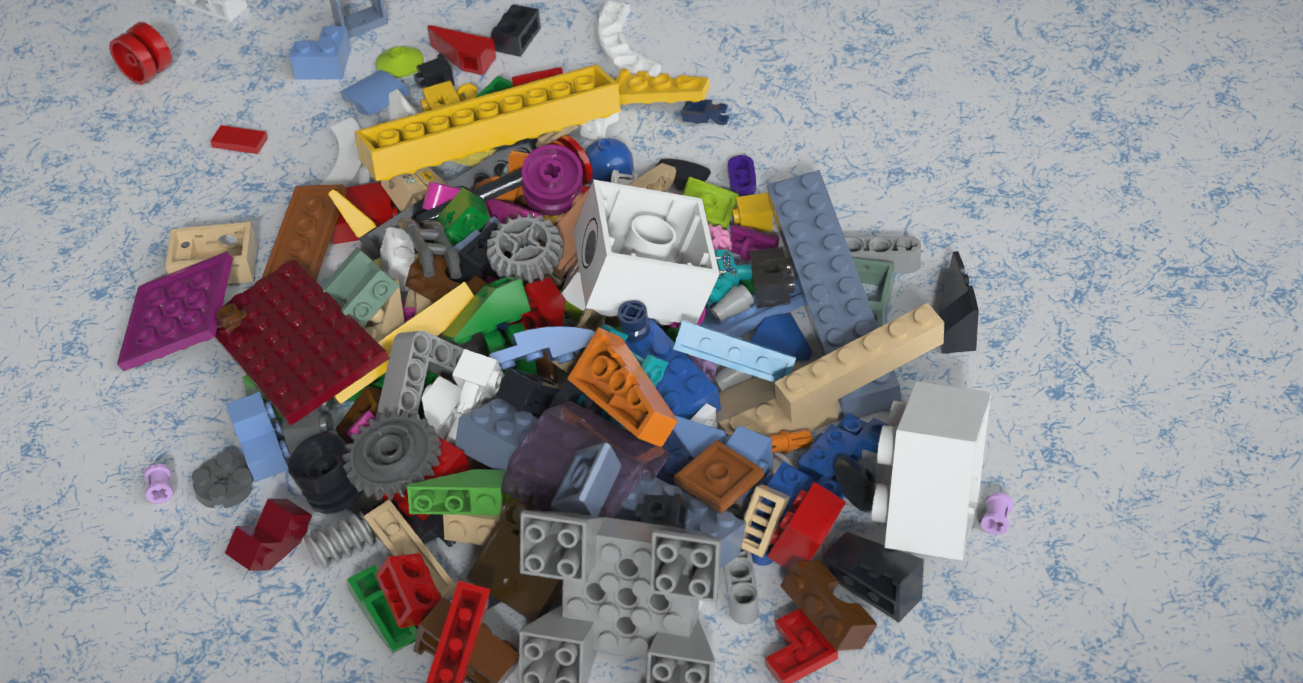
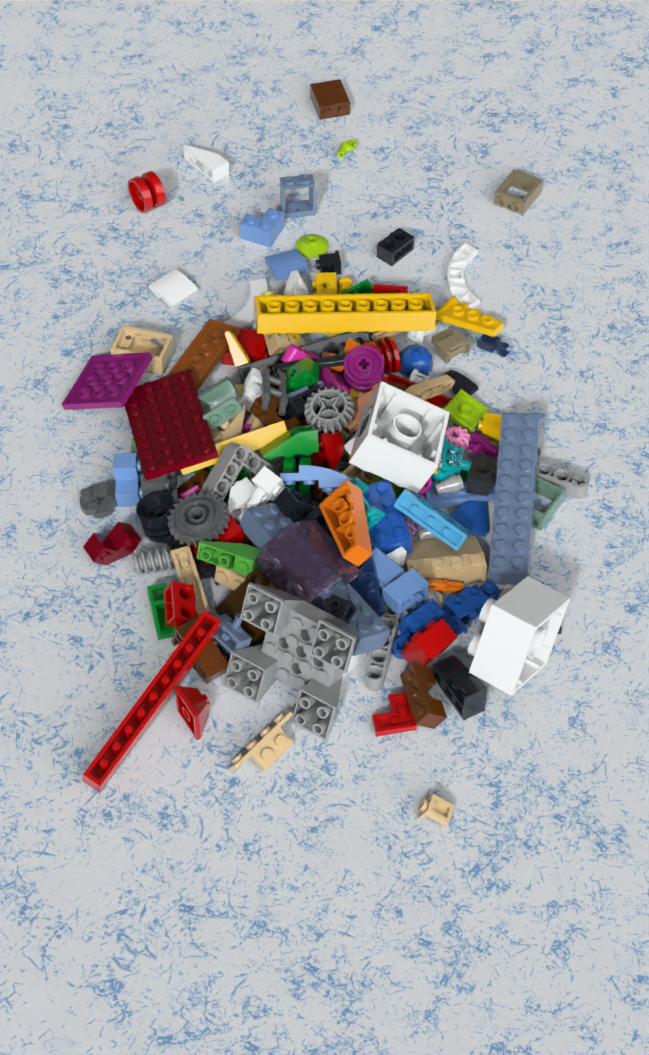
camera: 15 degrees right, 5 degrees up
(158, 483) = (61, 486): lavender bush -> none
(225, 165) = (173, 288): none -> white slope
(230, 317) = (136, 397): reddish brown plate -> none
(239, 139) = (192, 272): red tile -> none
(464, 50) = (356, 251): red slope -> none
(509, 608) = (231, 635): none -> sand blue plate
(588, 480) = (302, 575): sand blue slope -> none
(634, 320) = (376, 479): dark blue wheel -> none
(646, 128) = (450, 344): none -> dark tan piece
(719, 476) = (385, 596): dark orange plate -> none
(742, 175) = (497, 398): dark purple plate -> none
(776, 513) = (417, 624): tan slope -> none
(856, 483) = (470, 623): black dish -> none
(859, 362) = (506, 551): tan brick -> none
(958, 310) = (588, 537): black wedge -> none
(997, 512) = (553, 673): lavender bush -> none

